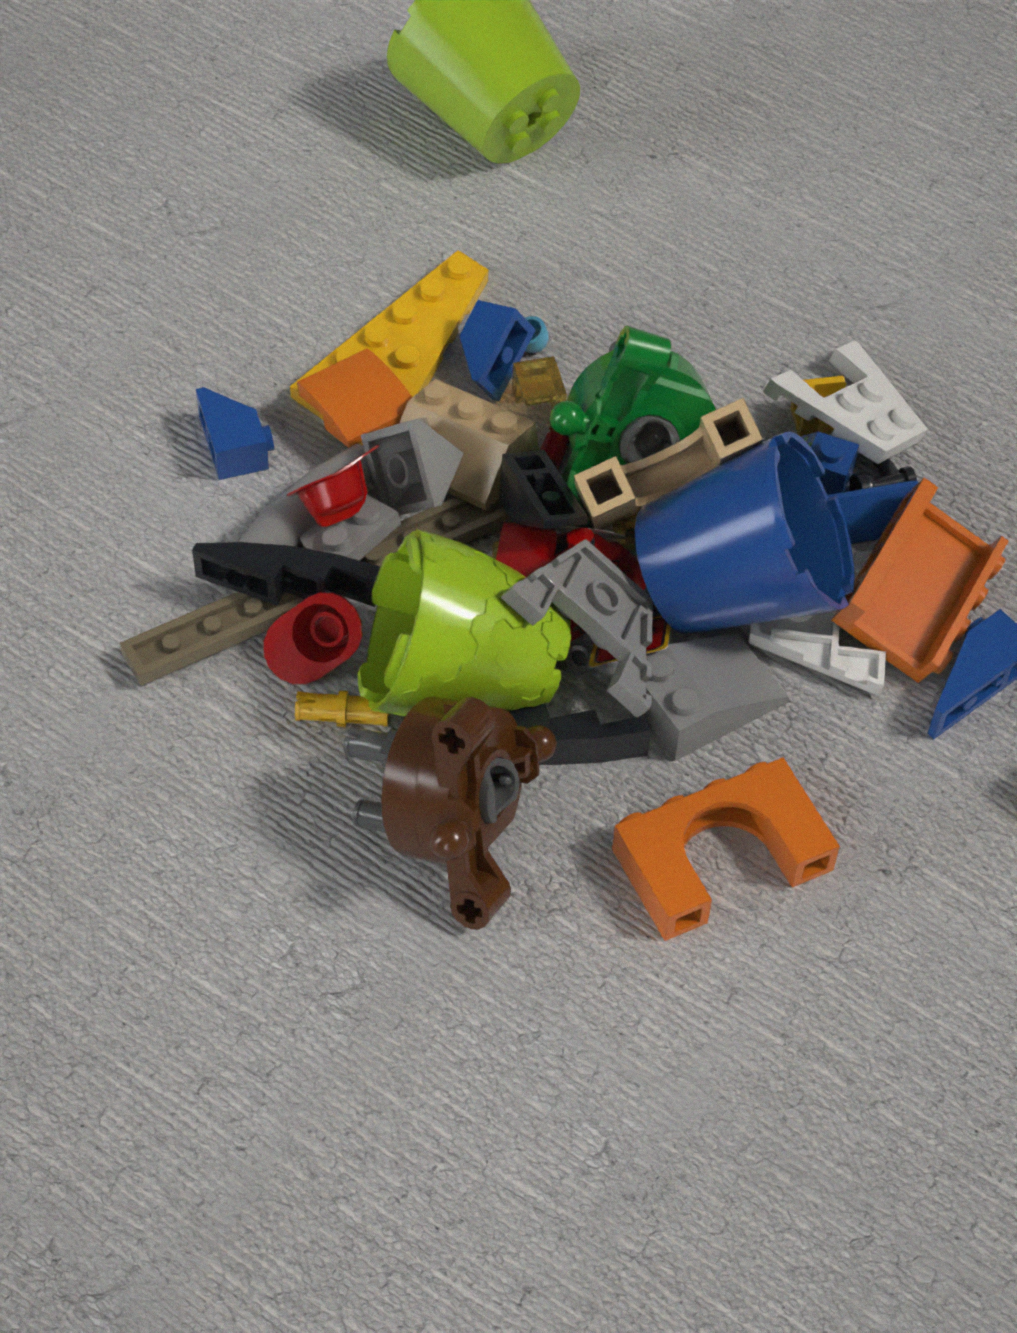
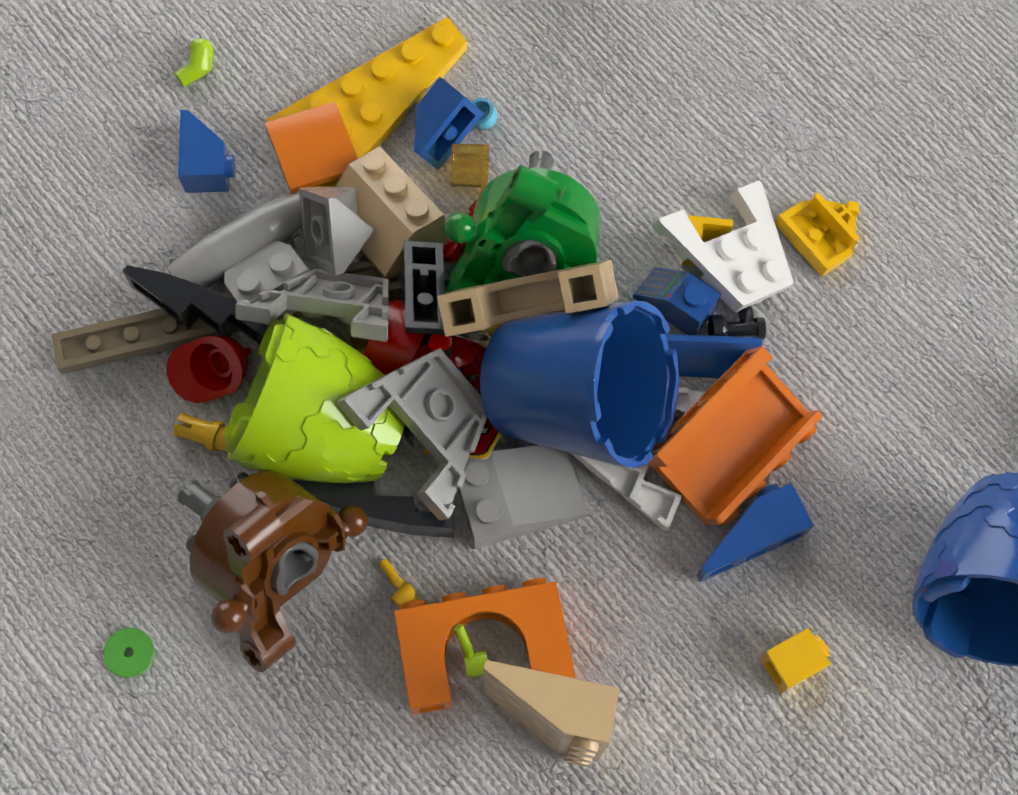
camera: 15 degrees right, 15 degrees up
(194, 348) = (200, 62): none -> lime arm
(318, 965) = (142, 652): none -> bright green wheel
(336, 495) = (258, 244): red piece -> none
(461, 523) = (318, 293): none -> light grey wing
(611, 814) = (405, 591): none -> yellow hand
(719, 867) = (473, 660): none -> lime hand
(831, 860) = (561, 711): none -> tan slope
(938, 376) = (821, 231): none -> yellow slope

